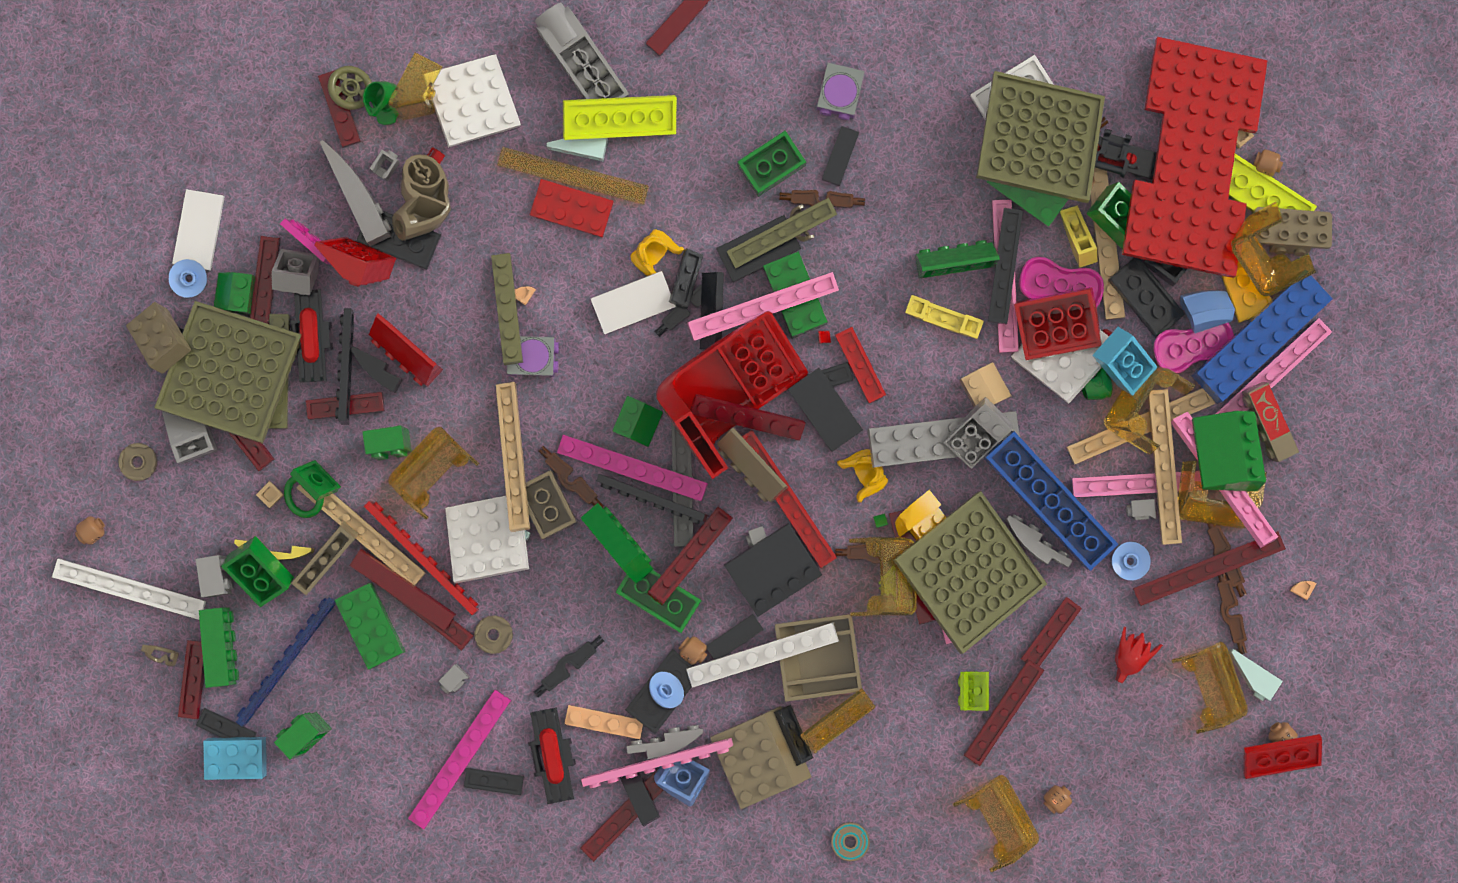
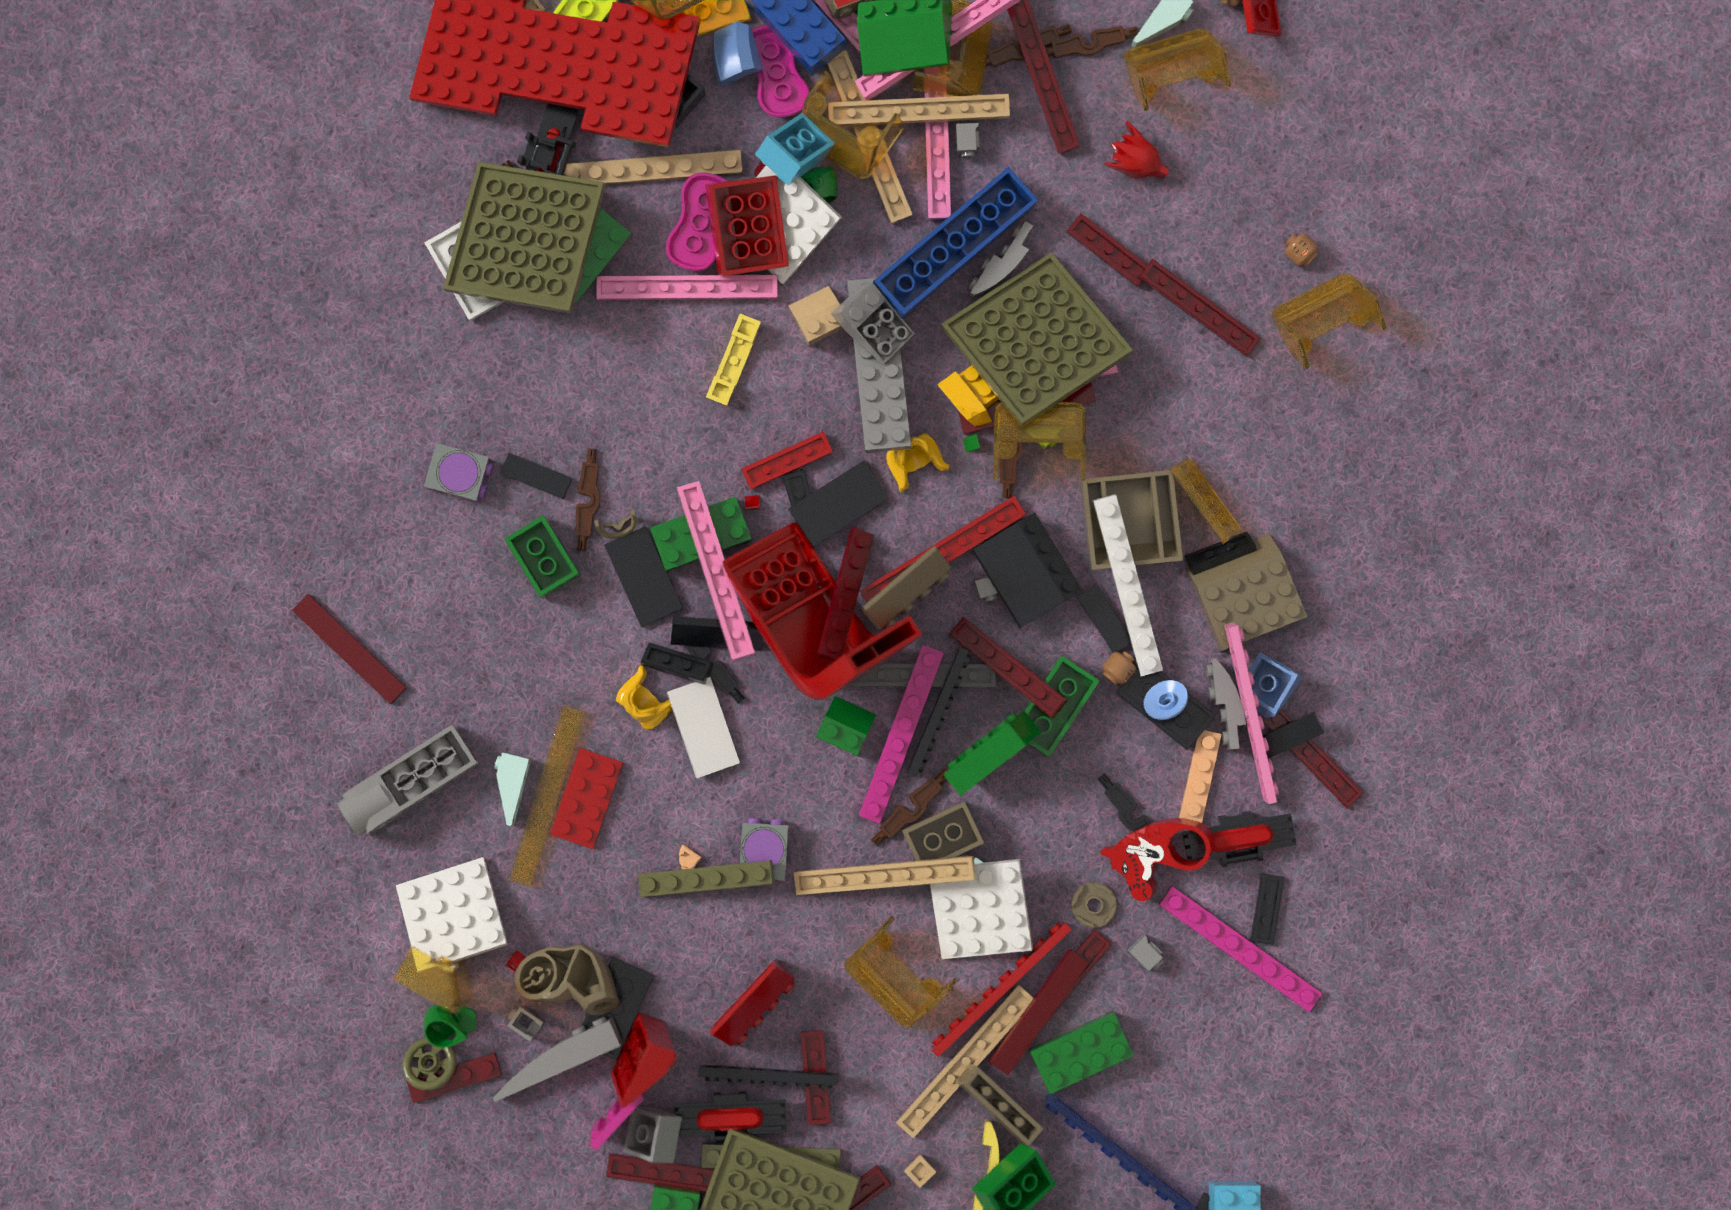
camera: 95 degrees left, 0 degrees up
(302, 735) = (1210, 1135): green brick -> none
(315, 482) = (907, 1114): green tile -> none
(377, 369) = (773, 1038): black slope -> none
(386, 442) = (862, 1026): green brick -> none
(540, 673) = (1152, 844): none -> red animal
(619, 117) = (480, 736): neon yellow plate -> none
(782, 233) = (627, 547): olive plate -> none
(850, 853) = (1358, 488): dark tan tile -> none
(956, 260) = (665, 342): green slope -> none
(973, 691) = (1173, 341): lime bracket -> none
(1005, 266) = (676, 285): black plate -> none
(1079, 236) = (643, 198): light yellow slope -> none
(1111, 212) = (617, 158): green brick -> none
(1138, 554) = (1029, 143): light blue dish -> none
(1146, 296) = (717, 123): black tile -> none

